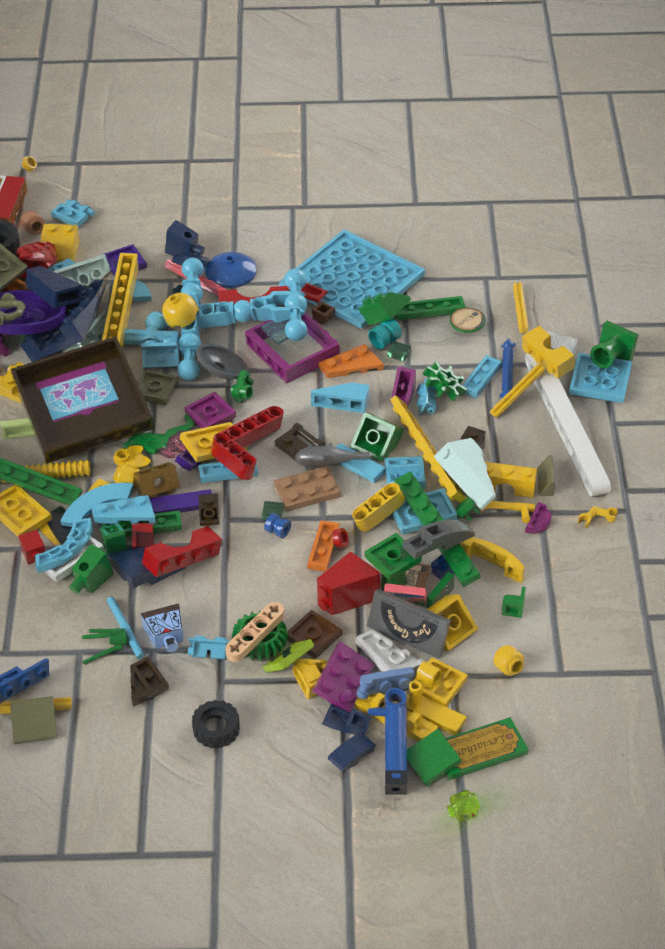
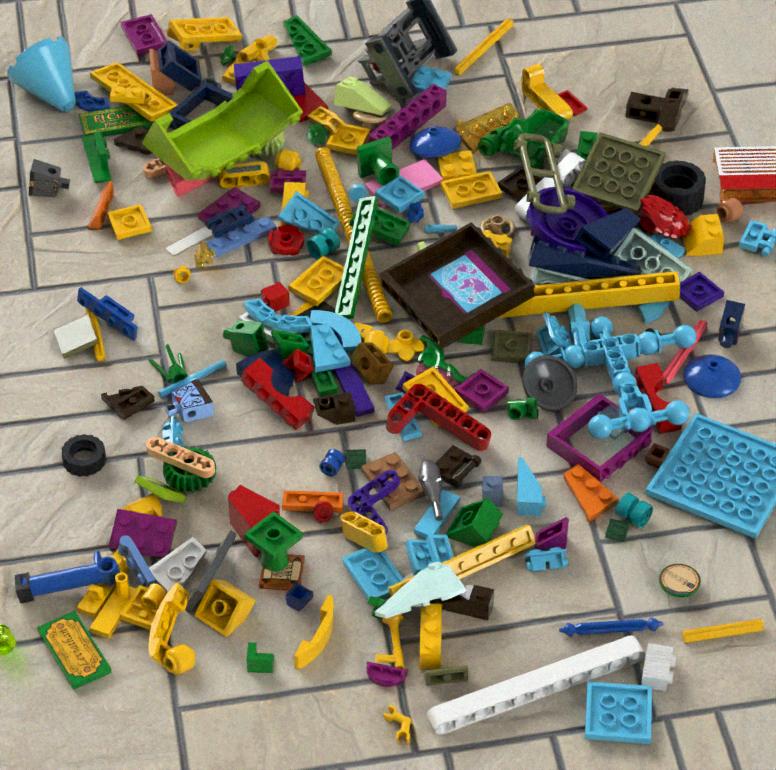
camera: 80 degrees right, 0 degrees up
(179, 310) = (604, 330): yellow cylinder -> none
(180, 258) = (709, 338): dark blue slope -> none
(313, 293) = (681, 436): red tile -> none
(316, 628) = (201, 511): reddish brown tile -> none
(332, 504) = (367, 500): none -> dark purple beam
(342, 418) = (493, 489): none -> sand blue brick
(345, 721) = (98, 542): dark blue slope -> none
(350, 751) = (61, 553): dark blue slope -> none
(382, 307) = (664, 495): green slope -> none
(411, 594) = (246, 565): coral tile -> none
(427, 514) = (339, 579): green plate -> none
(430, 307) = (694, 546): green plate -> none
(432, 757) = (55, 611): green tile -> none
(435, 535) = (302, 565): dark grey slope -> none
(442, 589) = (264, 597): green tile -> none
(444, 381) = (561, 572): green gear -> none
(481, 376) = (595, 605): medium azure tile -> none
(493, 674) = (164, 620): none -> yellow slope
(515, 392) = (569, 632): yellow axle -> none
(538, 345) = (636, 635): yellow arch -> none
(613, 344) = (655, 710): green plant -> none

